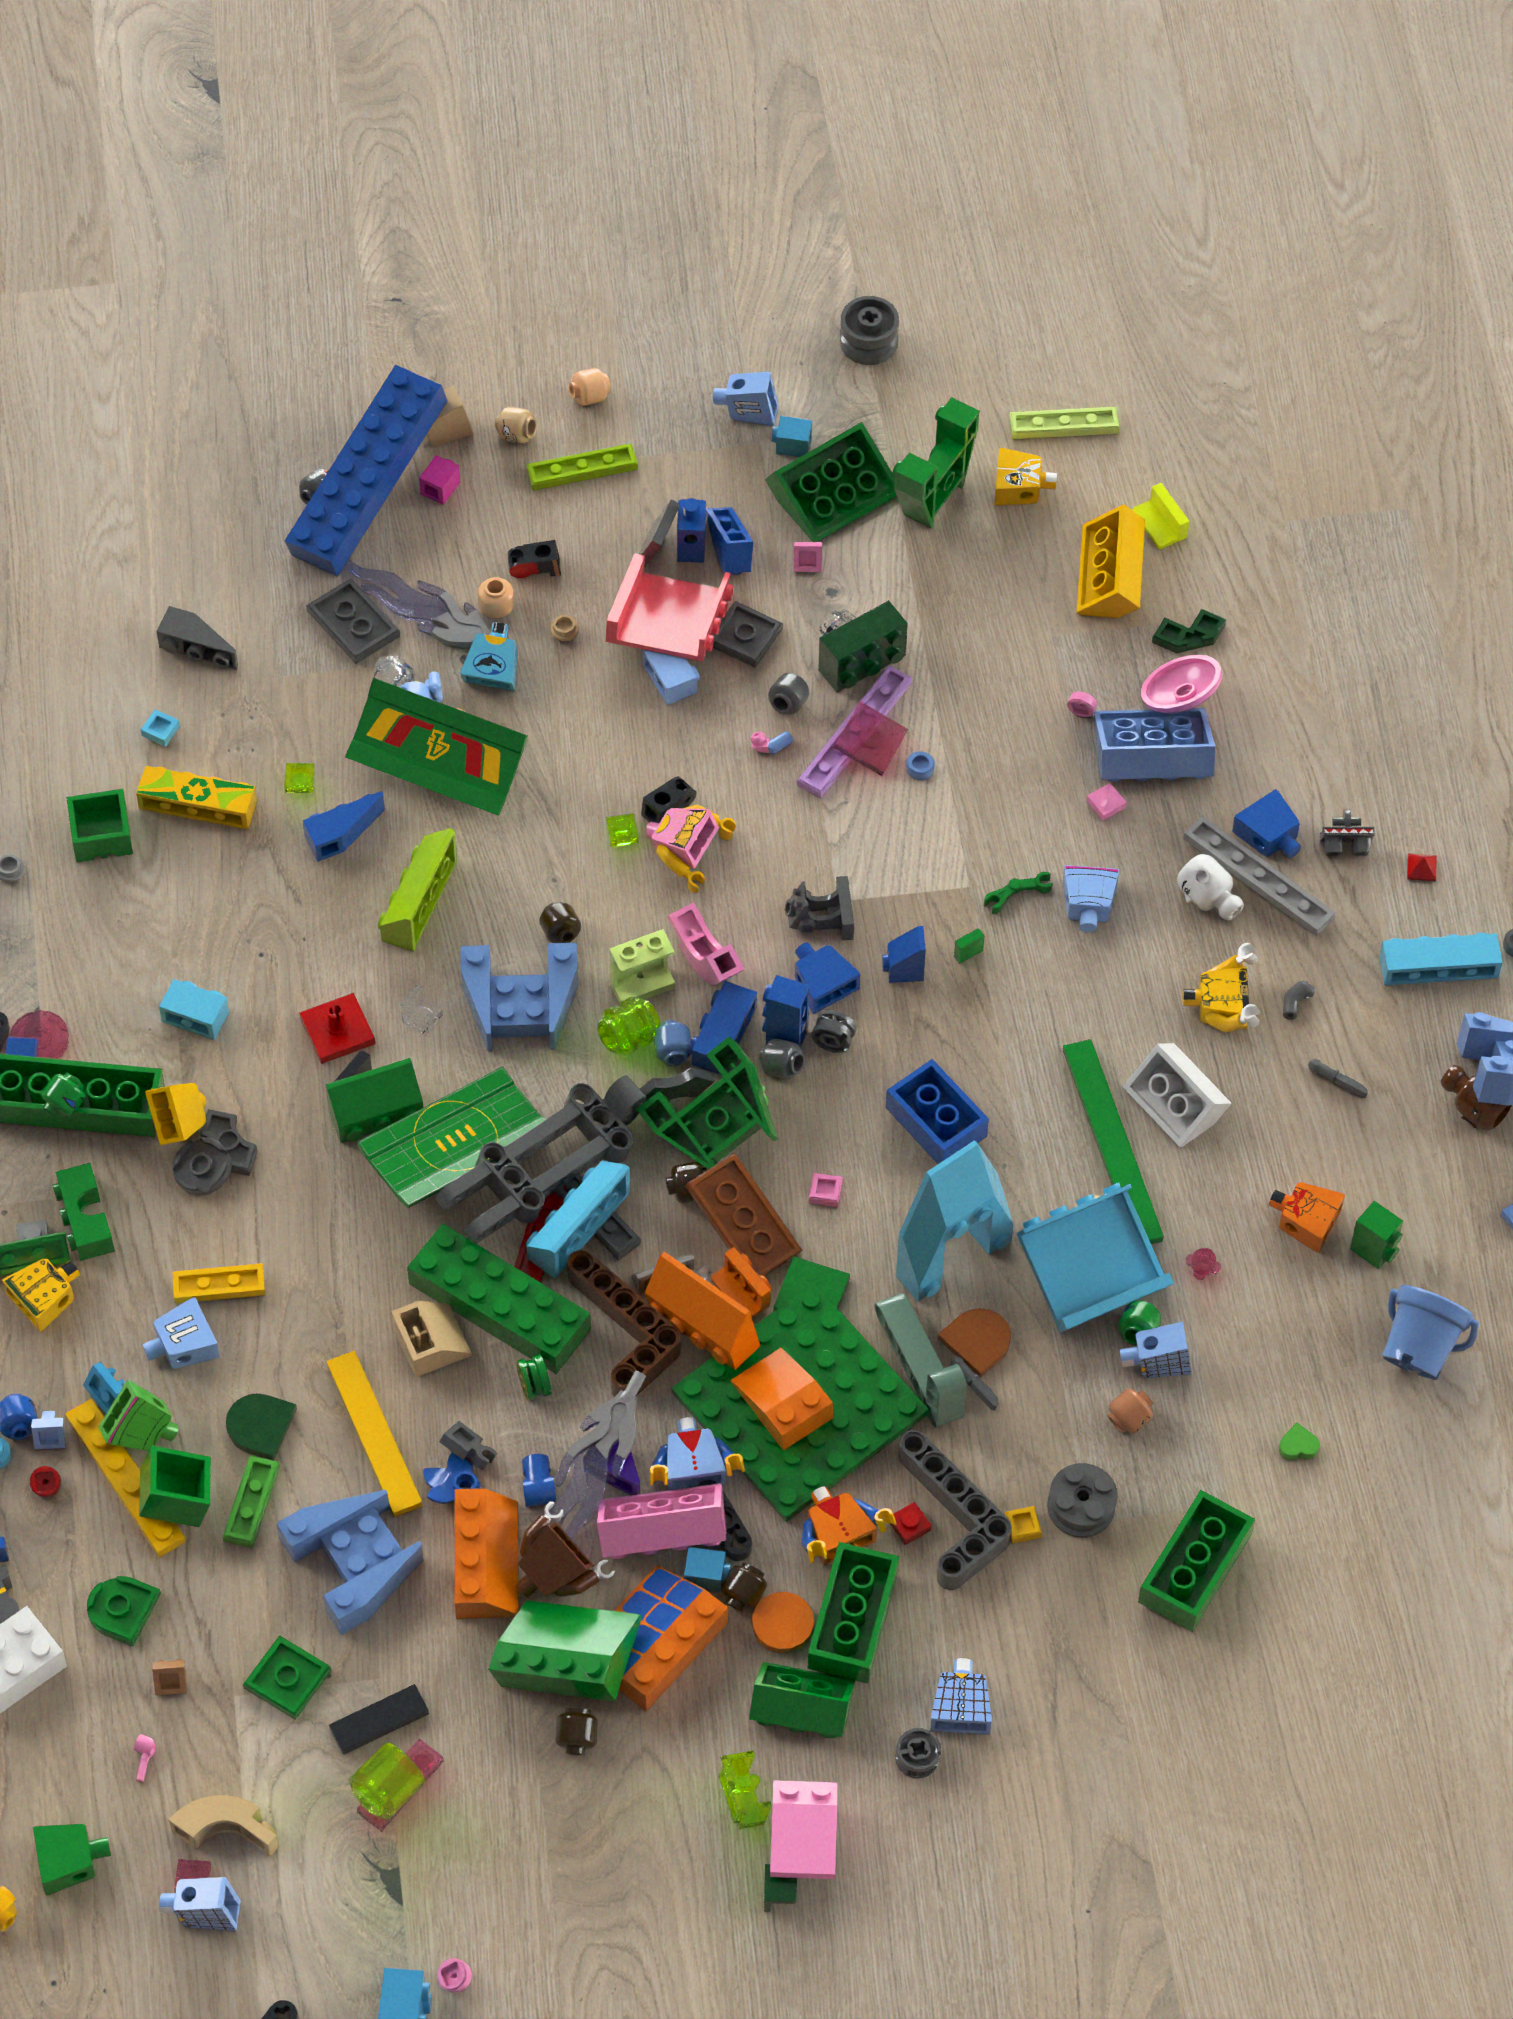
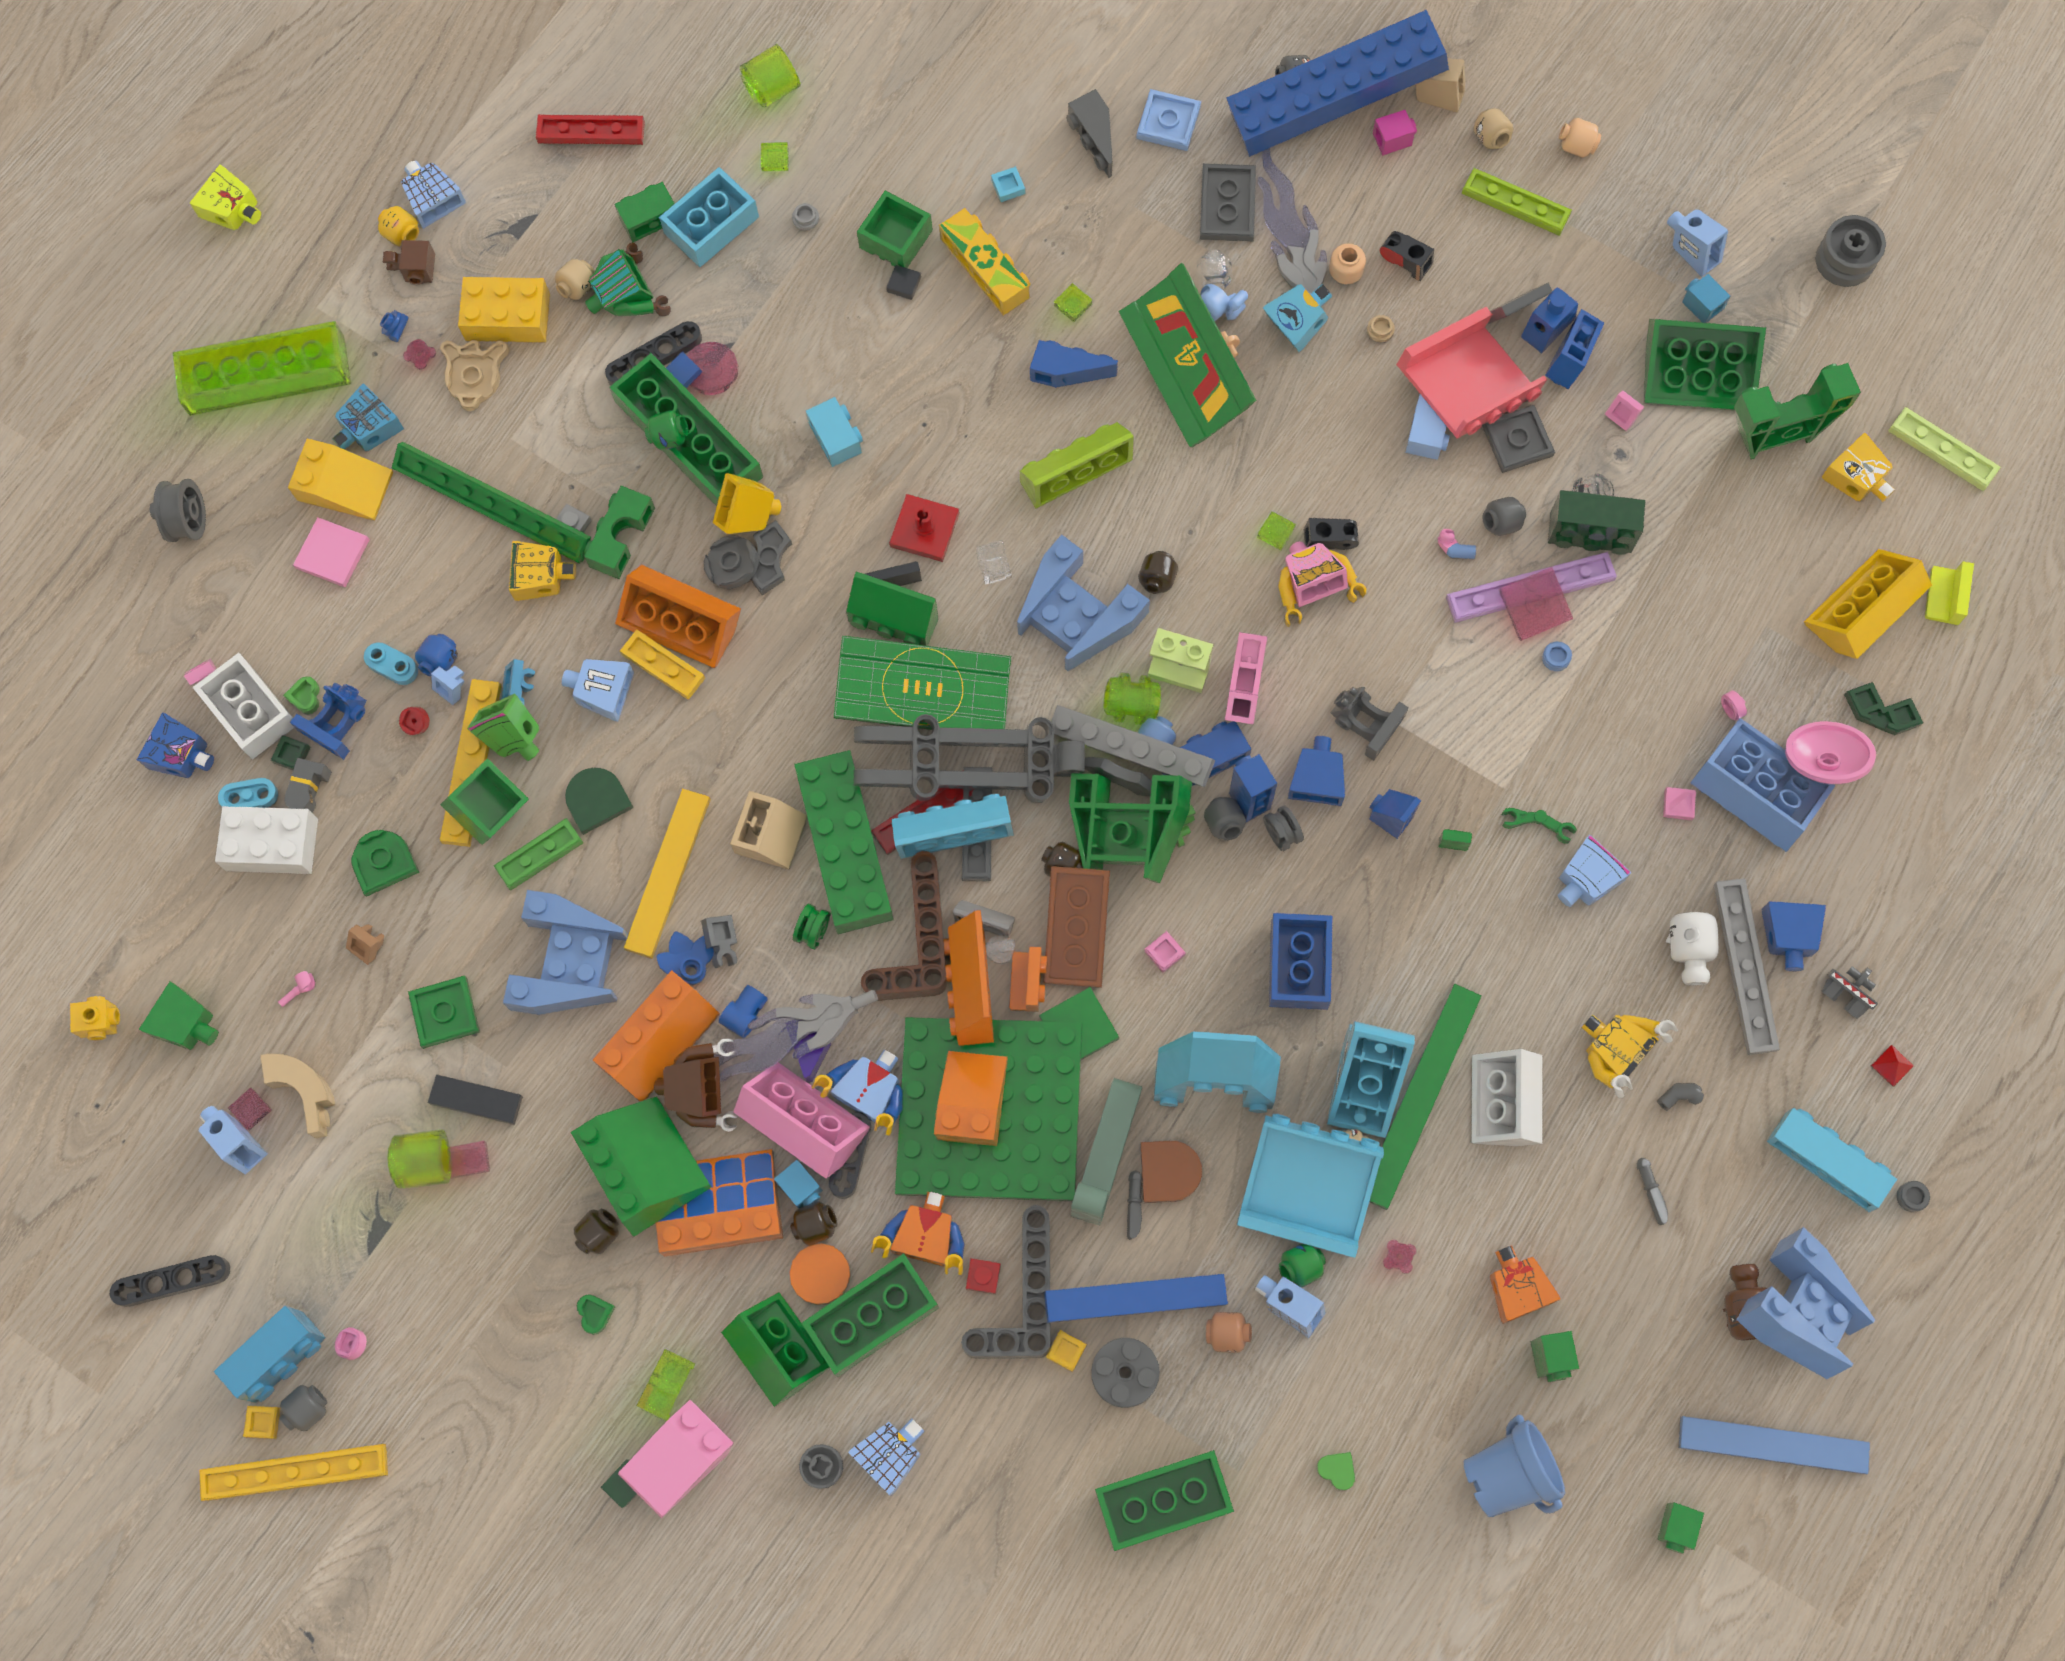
camera: 45 degrees right, 15 degrees up
(141, 860) = (903, 282): none -> black tile
(196, 1237) = (677, 615): none -> orange slope
(246, 593) = (1168, 120): none -> light blue tile
(631, 1794) = (594, 1313): none -> green tile
(665, 1055) = (1132, 746): none -> light grey plate
(1040, 1441) = (1135, 1298): none -> blue tile
(1064, 1145) = (1369, 1078): none -> medium azure brick

